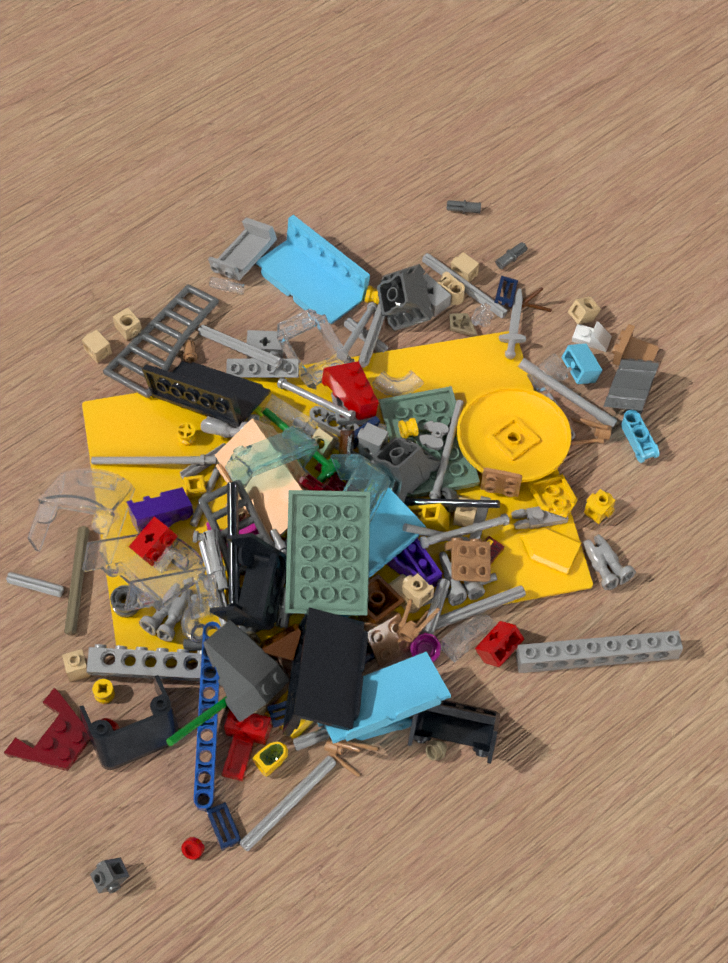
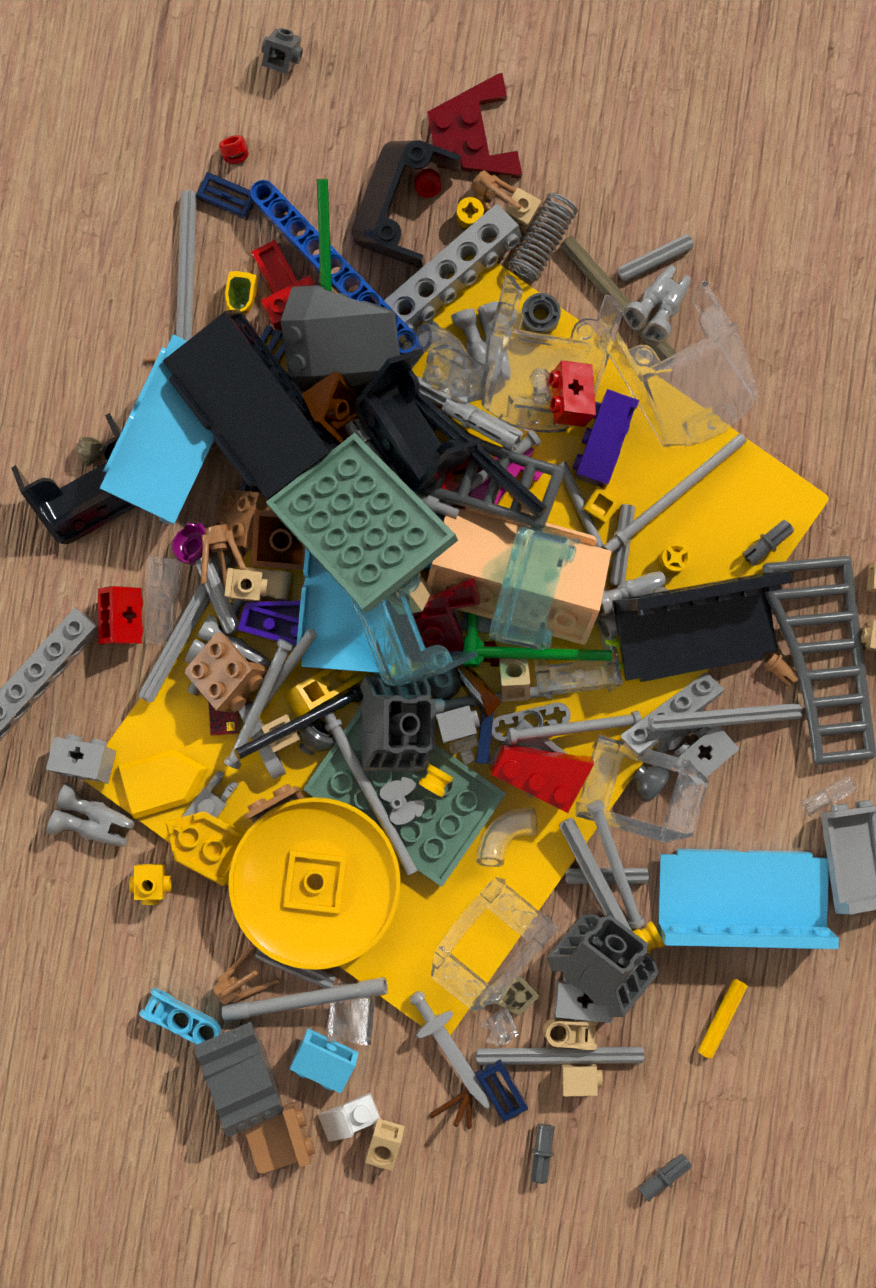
camera: 135 degrees right, 25 degrees up
(52, 557) = (664, 294): none -> light grey piece
(54, 654) = (560, 210): none -> light grey piece
(79, 696) = (489, 186): none -> medium nougat plant
(134, 403) = (768, 542): none -> dark grey axle
(305, 351) = (649, 781): none -> dark grey brick
(373, 242) = (722, 1018): none -> yellow axle
(426, 350) = (516, 913): none -> clear wedge
(592, 598) = (67, 761): none -> light grey brick

